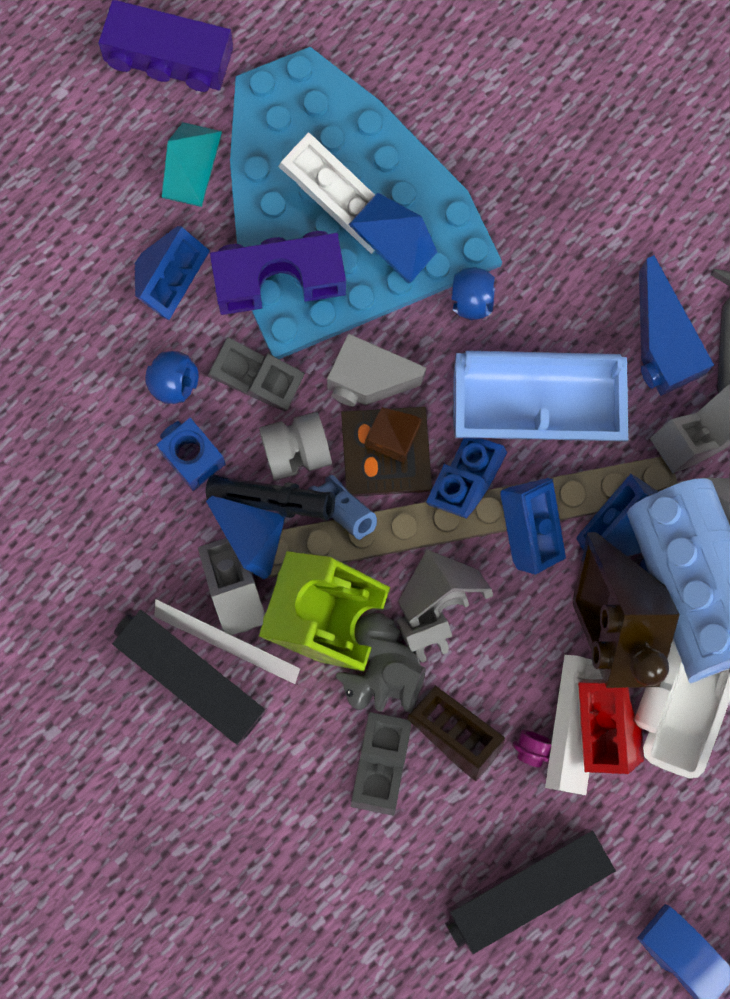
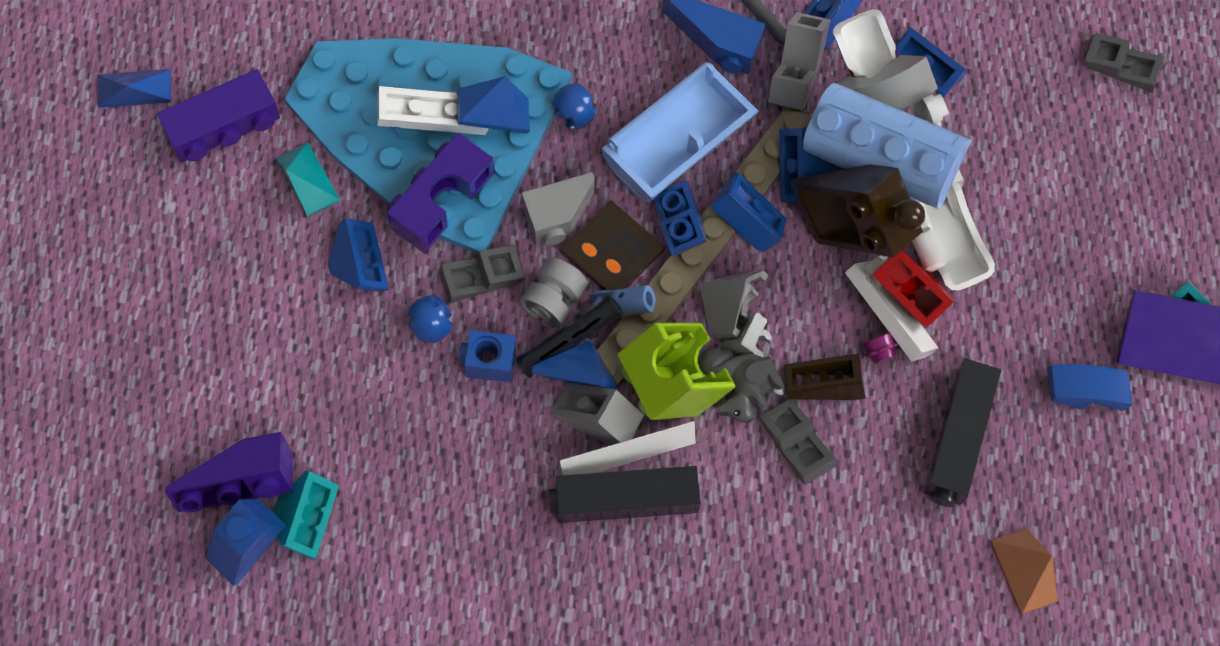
camera: 40 degrees left, 10 degrees down
(393, 433) = (610, 231): reddish brown slope -> none

